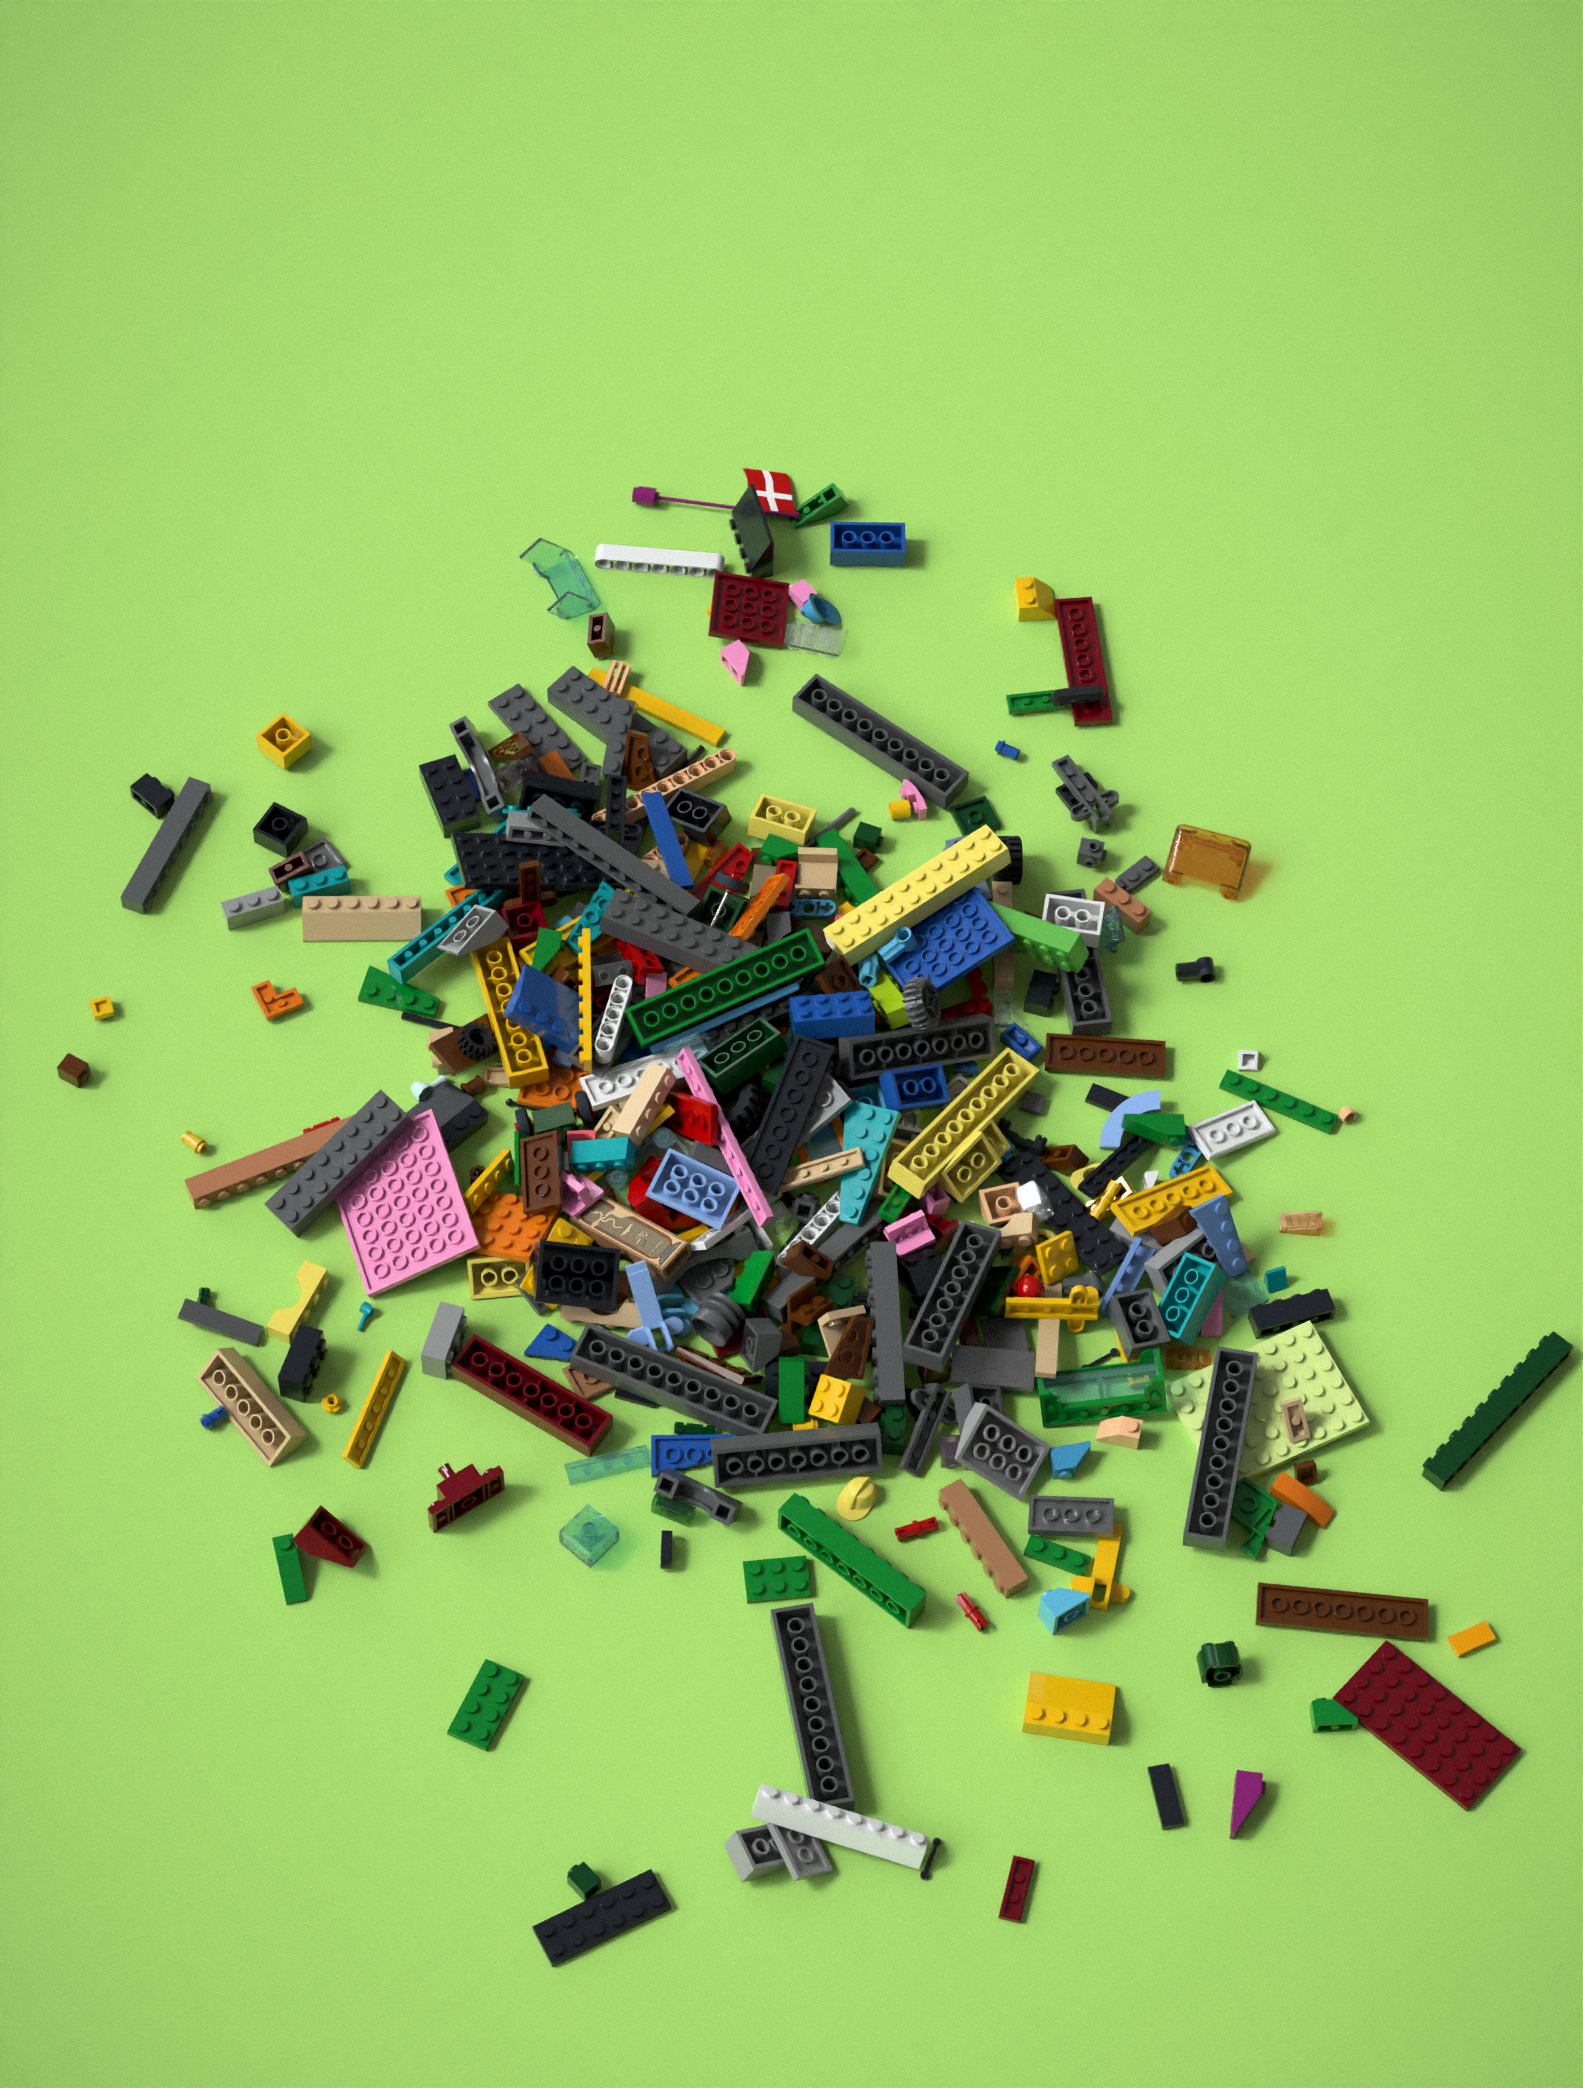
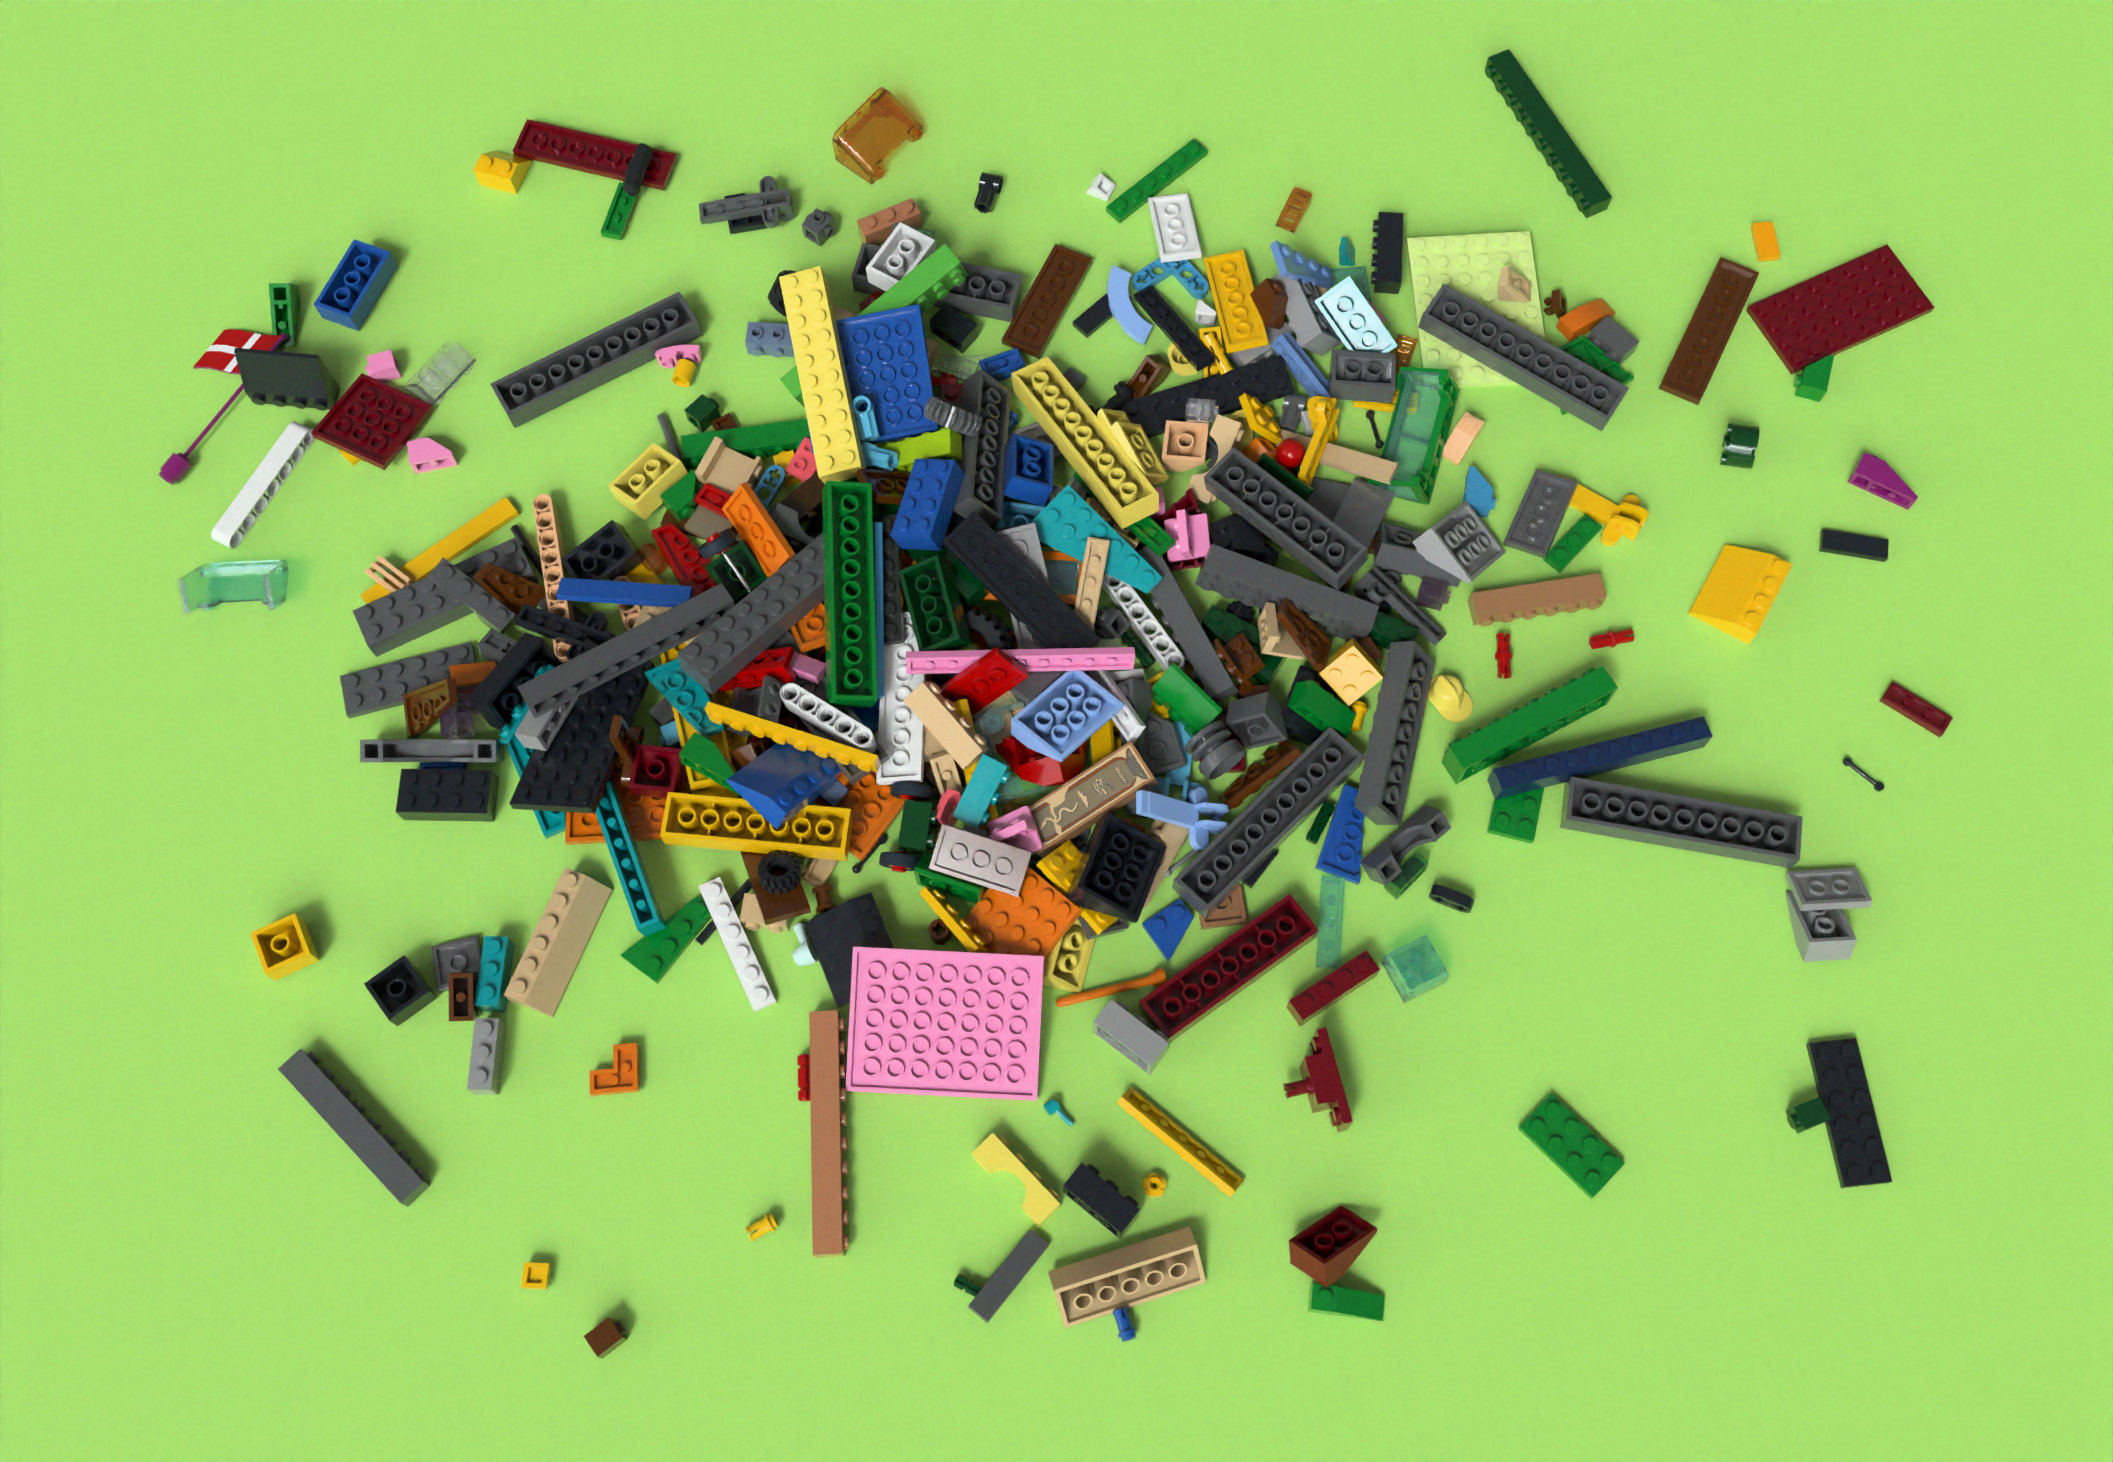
camera: 65 degrees left, 10 degrees up
(152, 795) = (278, 1120): black brick -> none
(339, 1163) = (871, 1073): dark grey brick -> none
(410, 1040) = (737, 944): none -> white plate
(475, 930) = (649, 825): light grey slope -> none
(503, 1345) = (1156, 978): none -> orange piece
(548, 1480) = (1333, 988): none -> dark red brick
(601, 635) = (326, 571): brick -> none
(690, 1040) = (895, 655): clear light blue tile -> none
(808, 1261) = (1191, 637): reddish brown slope -> none
(820, 610) = (411, 358): dark azure piece -> none
(839, 1826) = (1825, 842): white brick -> none
(845, 1626) = (1599, 757): none -> dark blue brick
(973, 815) = (724, 313): dark green tile -> none
(1007, 750) = (662, 255): blue pin -> none
(1062, 1608) = (1644, 557): medium azure slope -> none
(1137, 874) = (856, 199): dark grey hinge -> none
(1160, 1128) = (1154, 282): green slope -> none
(1347, 1114) = (1193, 131): light nougat hinge -> none

